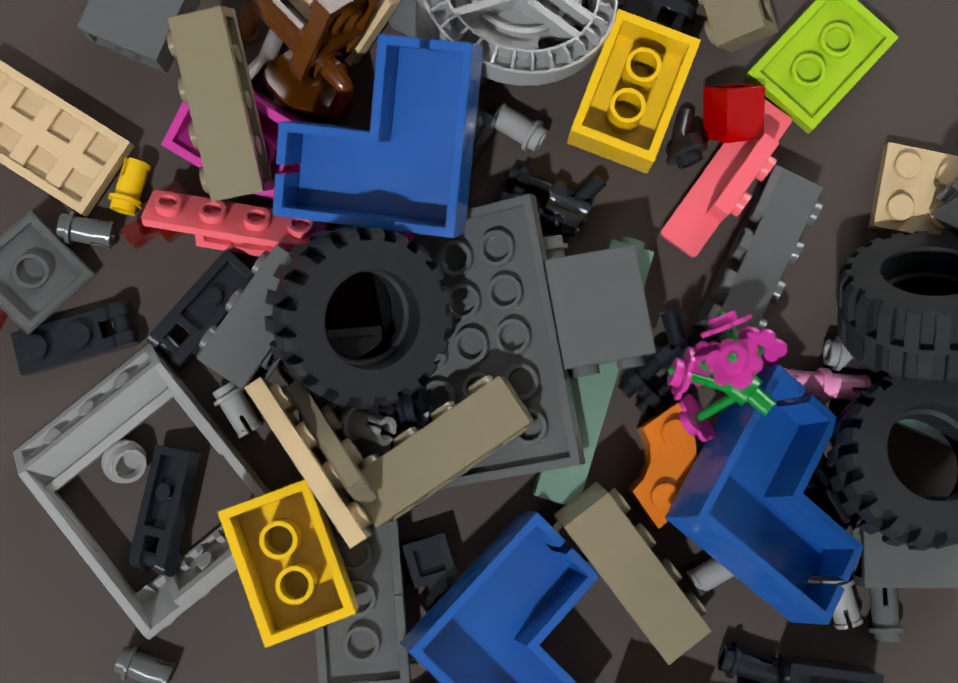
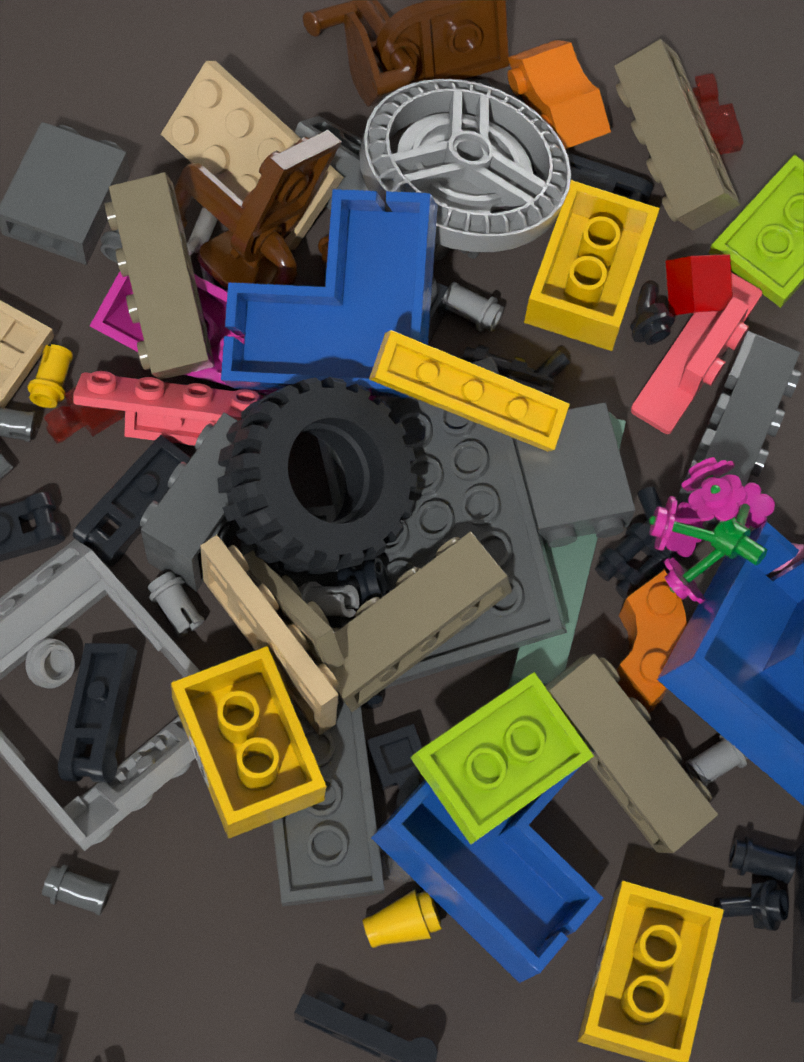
camera: 10 degrees left, 15 degrees down
(502, 241) = (469, 391): none -> yellow plate
(517, 590) = (501, 757): none -> lime plate

